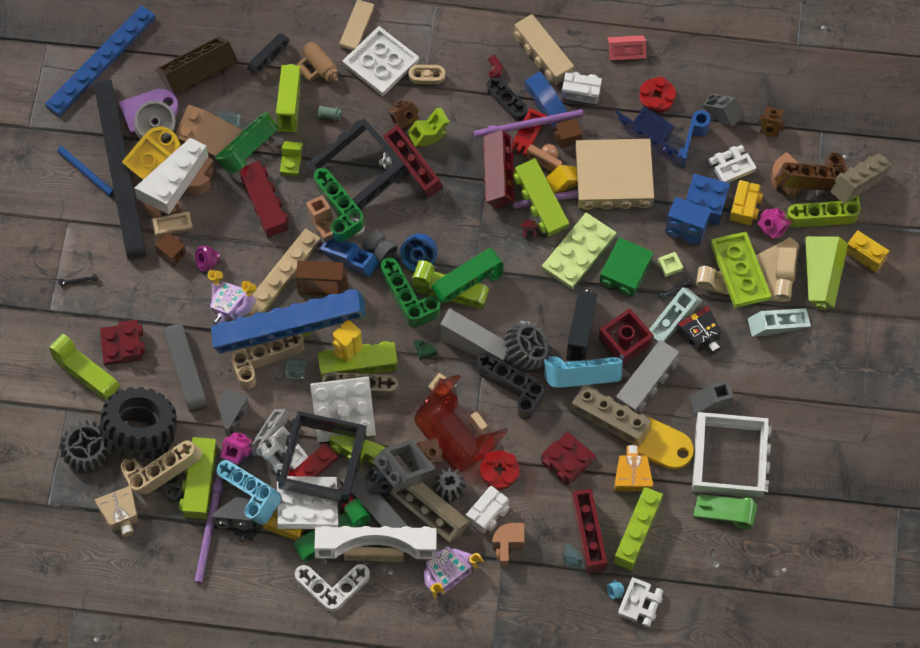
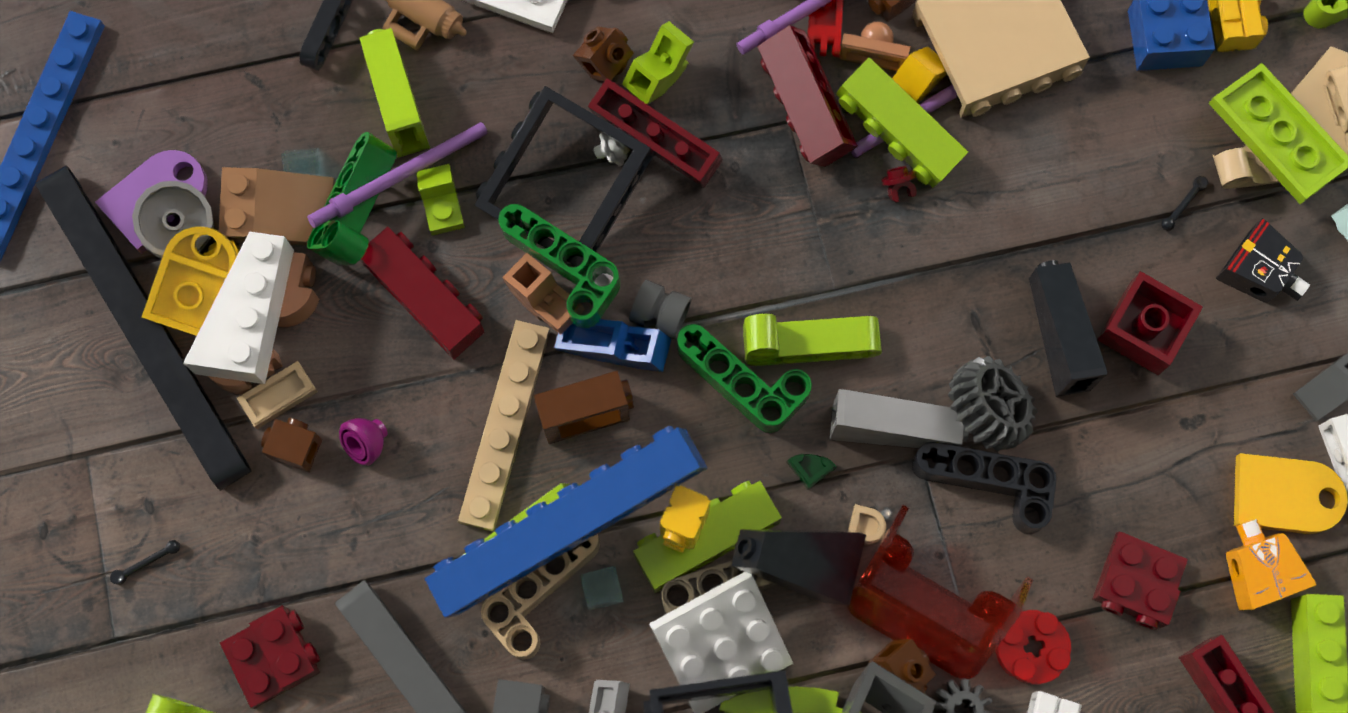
camera: 20 degrees left, 10 degrees up
(88, 173) = (82, 349): blue bar -> none
(196, 65) = (209, 87): dark brown slope -> none
(230, 300) = (436, 507): torso -> none
(240, 141) = (343, 204): none -> medium lavender bar
(330, 113) = (475, 94): sand green pin -> none
(397, 382) = (803, 560): none -> black slope
(418, 248) = (732, 294): blue cylinder -> none
(468, 275) = (840, 312): green beam -> none
(478, 423) = (965, 576): tan tile -> none
(578, 250) = (996, 194): yellowish green plate -> none
(584, 372) = (1103, 420): medium azure beam -> none
(611, 415) = (1188, 477): dark tan brick -> none
(626, 267) = (1091, 196): green brick -> none
(648, 376) = (1216, 386): light grey brick -> none
(670, 264) = (1160, 164): yellowish green plate -> none
(679, 309) = (1209, 250): light aqua slope -> none
(687, 221) = (1163, 79): blue brick -> none
(774, 222) = (1301, 42): dark pink brick -> none

